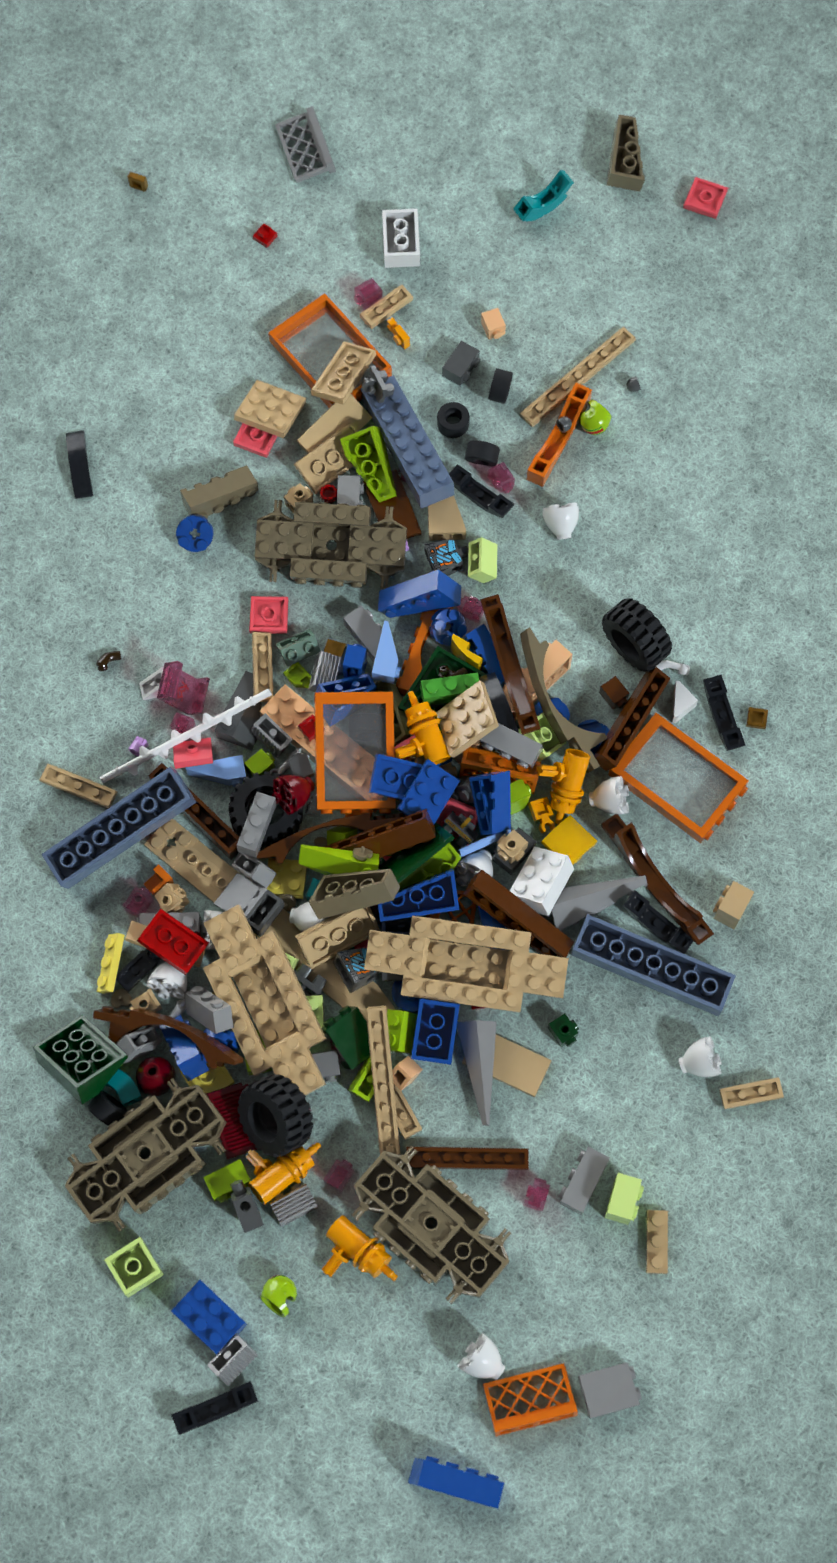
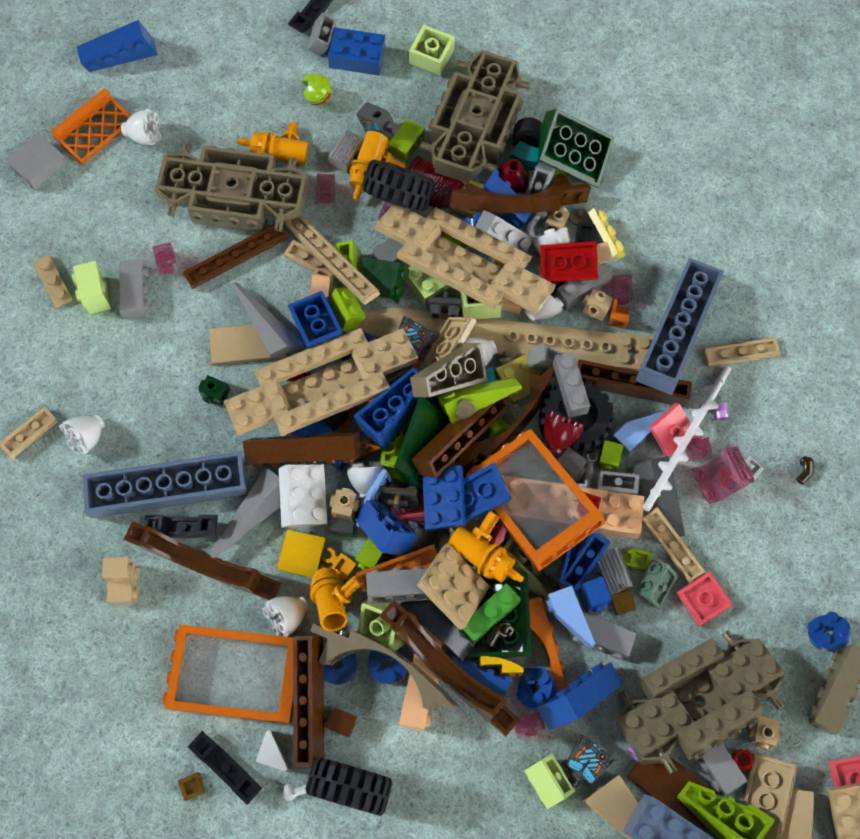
camera: 145 degrees right, 0 degrees up
(257, 902) = (528, 330): dark grey slope -> none

